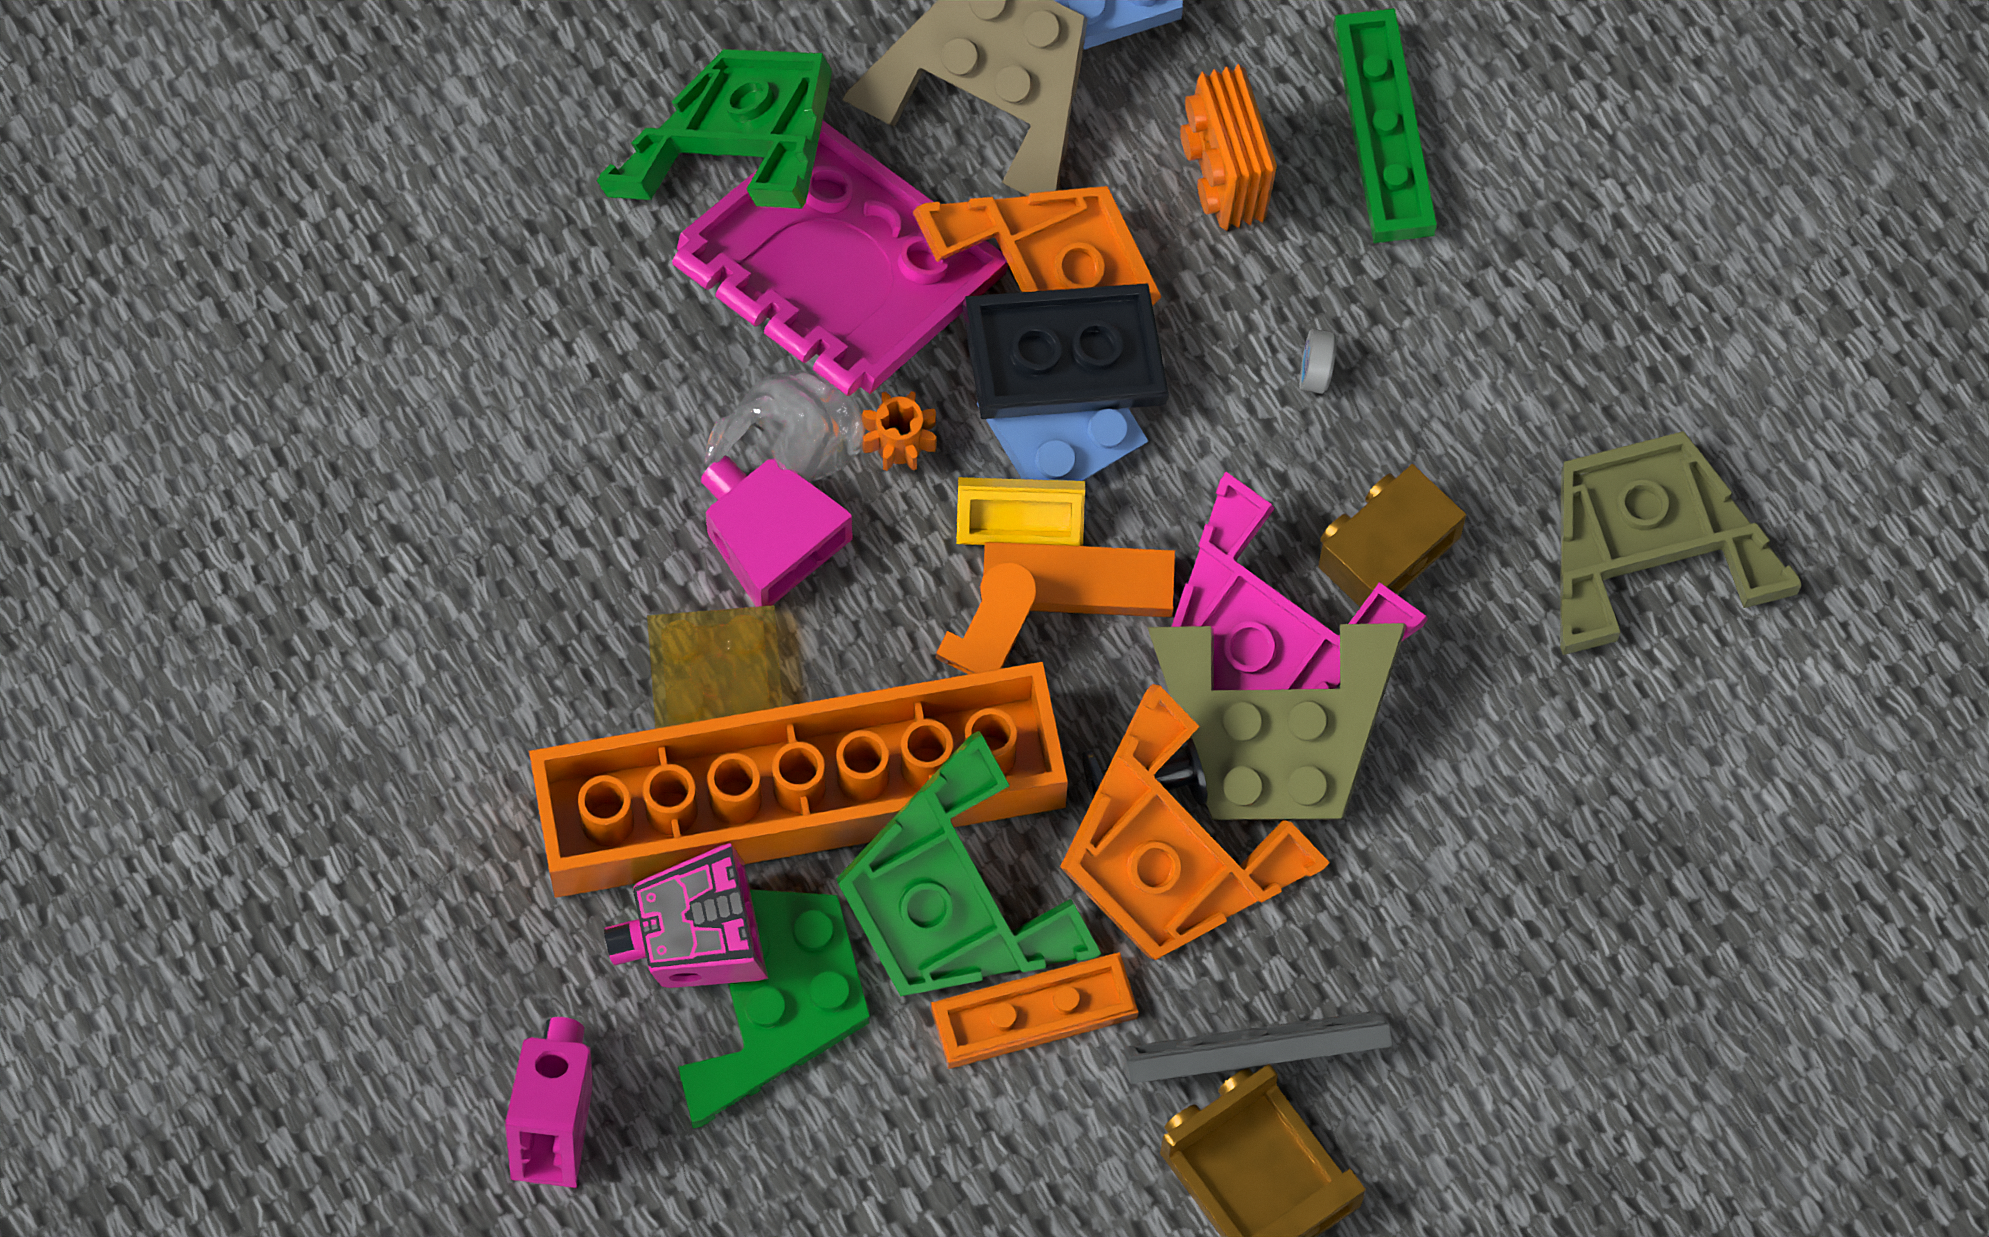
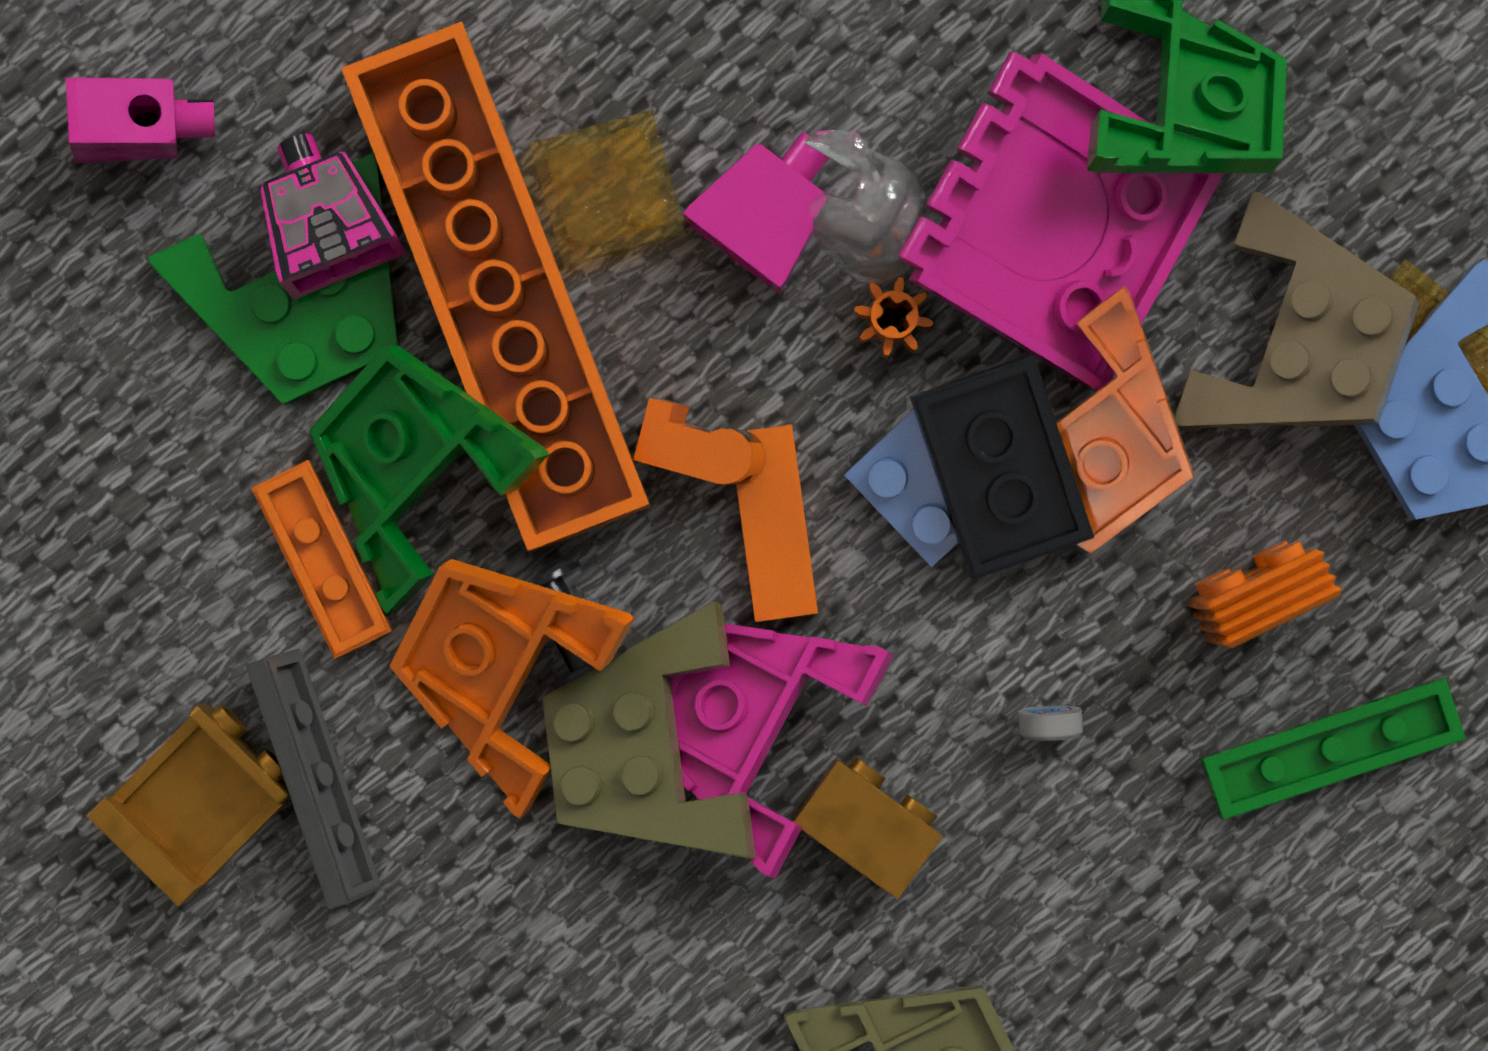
camera: 75 degrees right, 20 degrees up
(1020, 511) = (828, 453): yellow tile -> none

